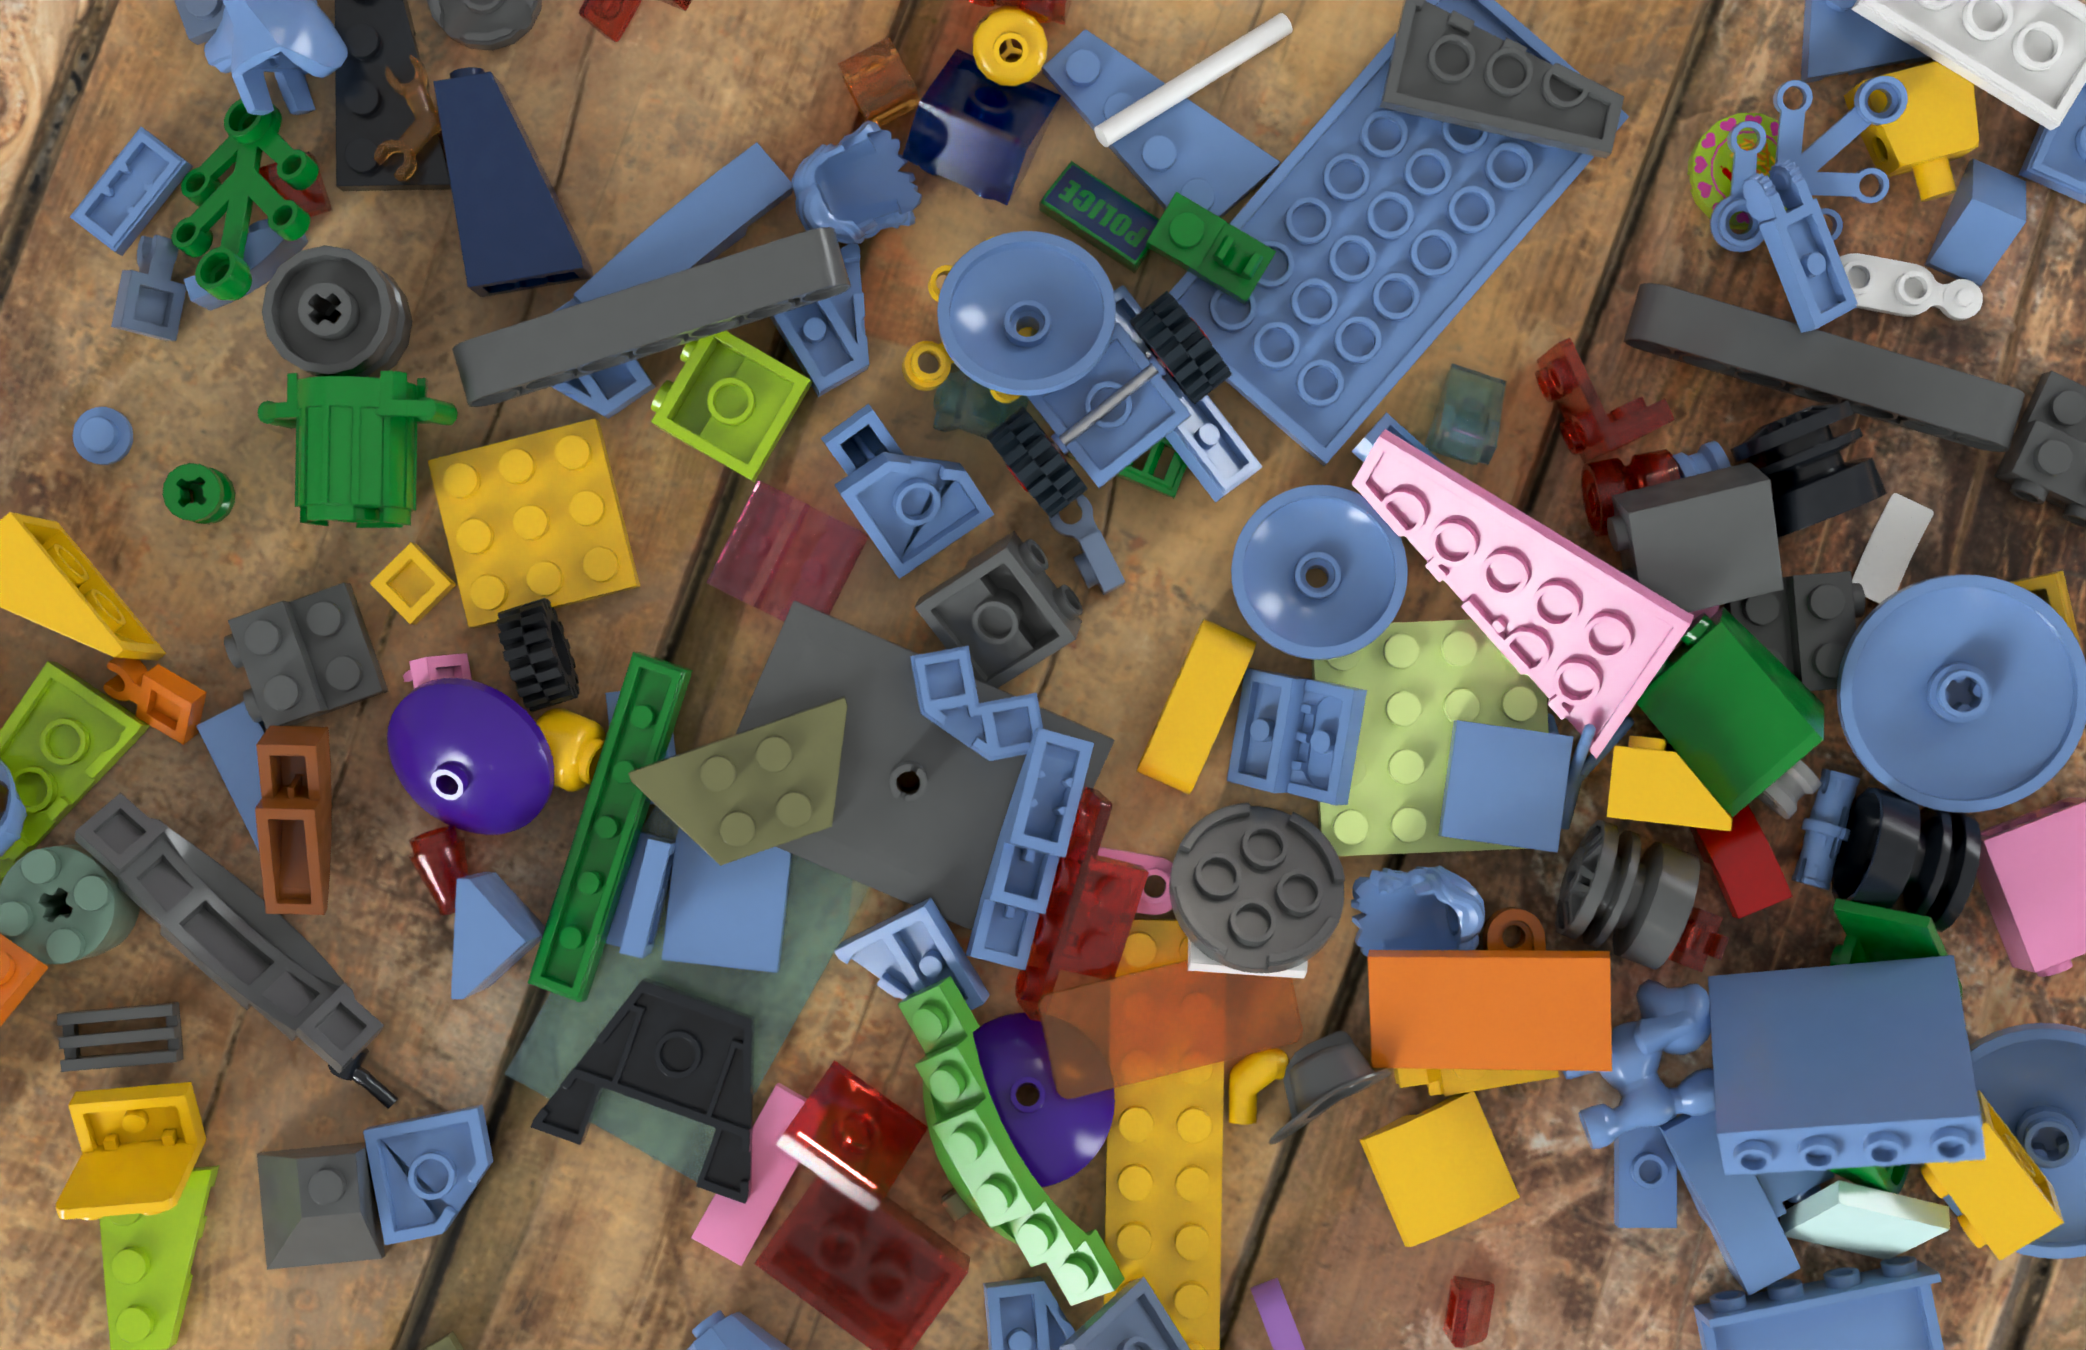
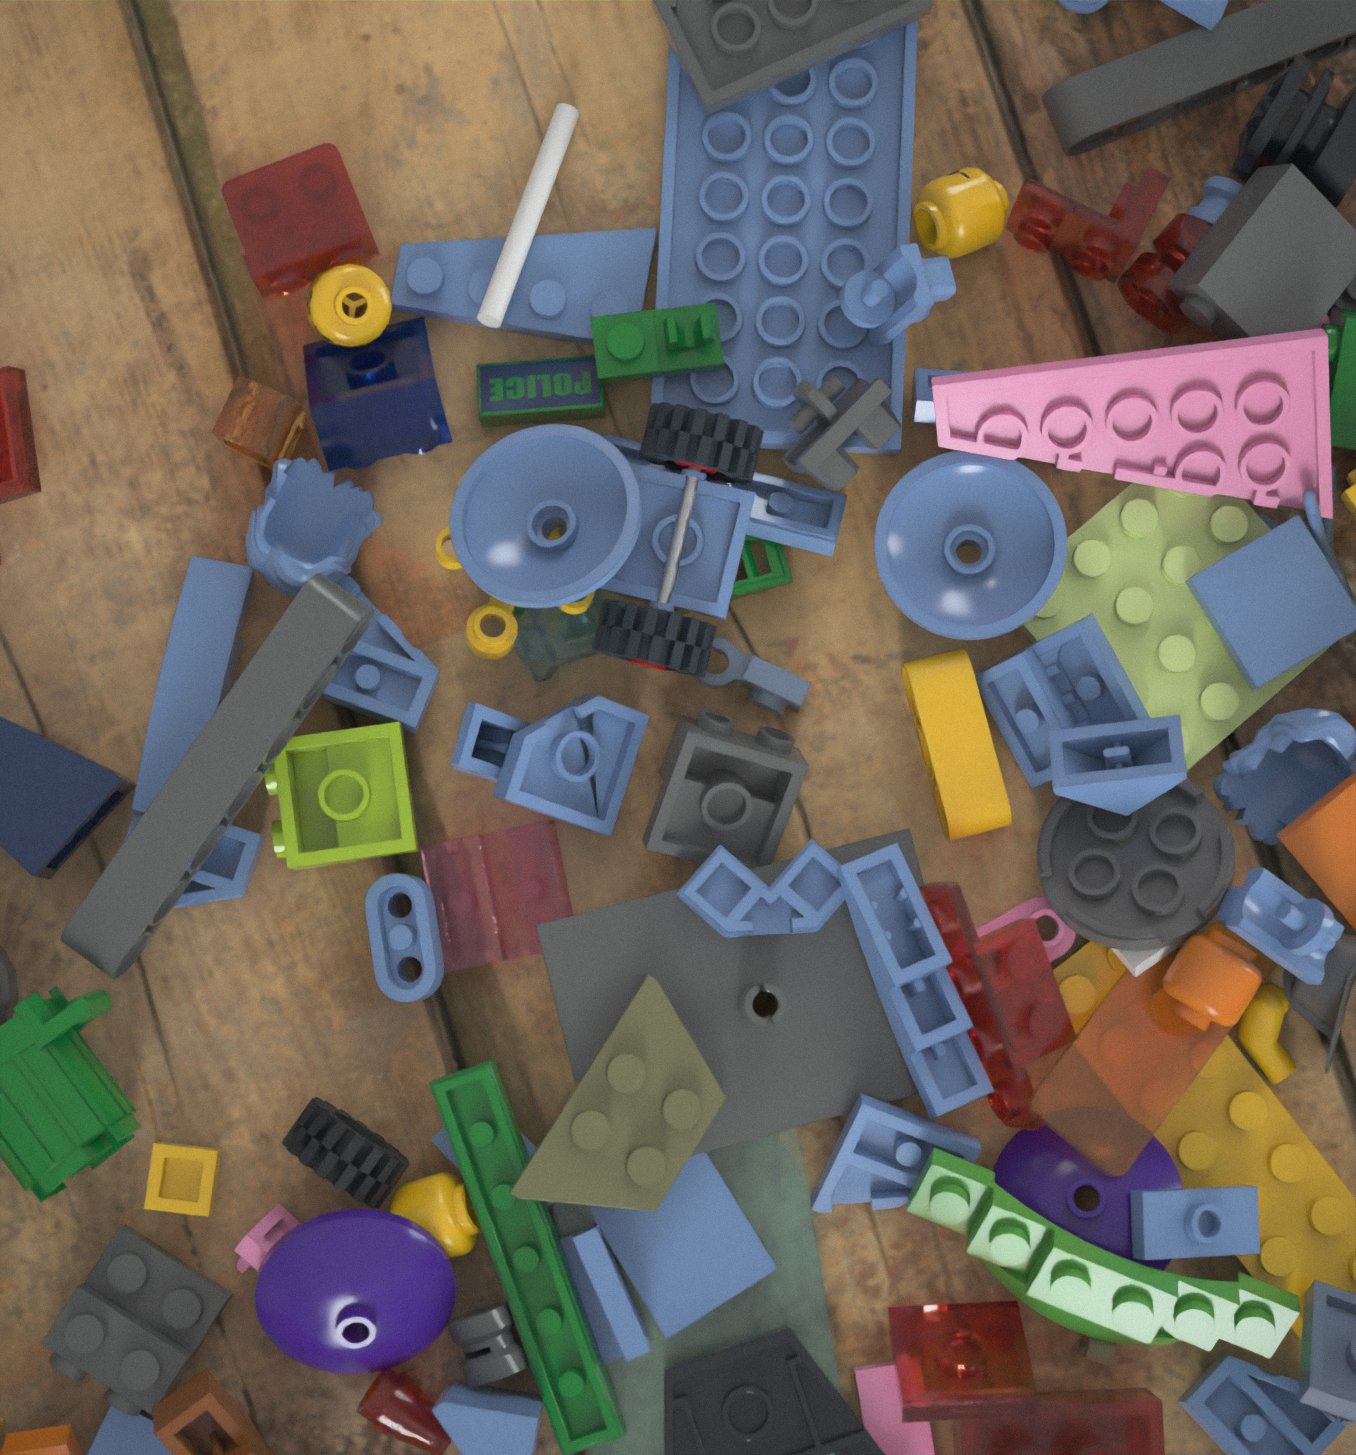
camera: 45 degrees left, 5 degrees down
(534, 521) = (248, 1040): yellow plate -> none
(535, 865) = (488, 1344): none -> dark grey wheel
(694, 534) = (399, 938): none -> medium blue plate
(1091, 1171) = (1194, 1222): none -> medium blue plate
(1238, 1014) = (1212, 980): none -> orange head
(1295, 810) = (1118, 762): none -> medium blue slope
(1315, 410) = (857, 410): none -> dark grey hips
(1317, 1014) = (1281, 924): none -> medium blue hips
(1408, 347) = (896, 292): none -> medium blue hips
(1467, 416) = (989, 320): clear light blue slope -> none
(1510, 324) = (960, 213): none -> yellow head

